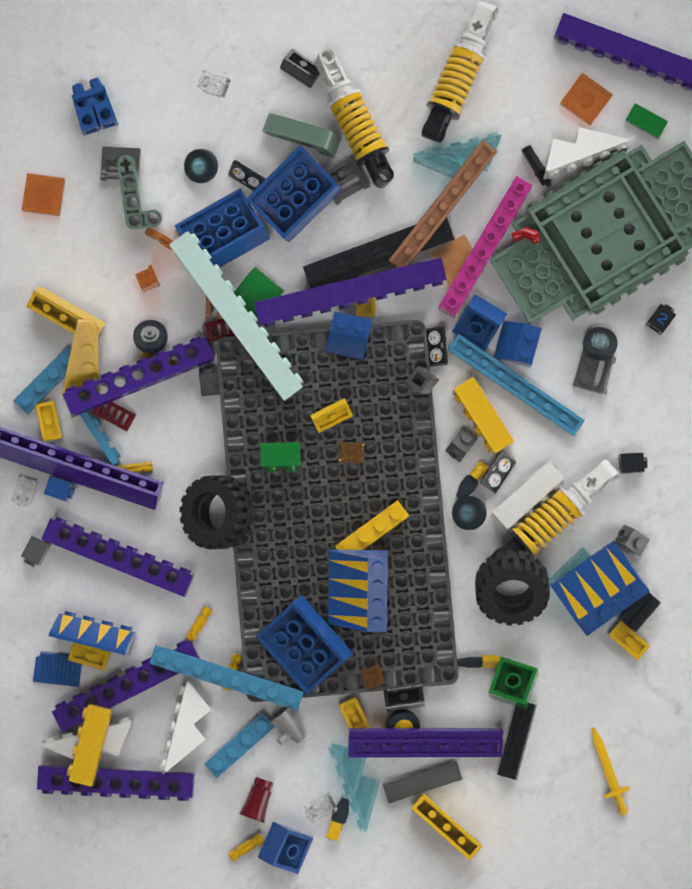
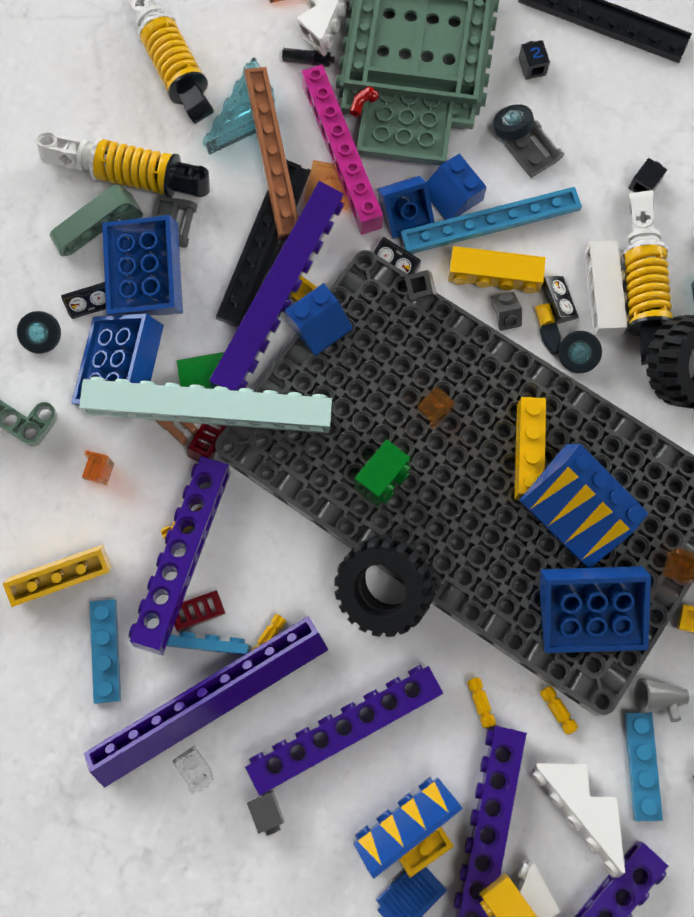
camera: 50 degrees left, 10 degrees down
(49, 421) = (146, 683): yellow plate -> none
(59, 489) = (223, 731): blue brick -> none
(84, 355) = (112, 589): yellow wing -> none
(150, 336) = (153, 511): black wheel -> none
(163, 239) = (76, 421): clear orange tile -> none
(209, 380) = (246, 490): dark grey bracket -> none
(226, 677) = (564, 719): dark azure plate -> none
(300, 68) = (38, 180): black slope -> none
(331, 415) = (382, 397): yellow plate -> none

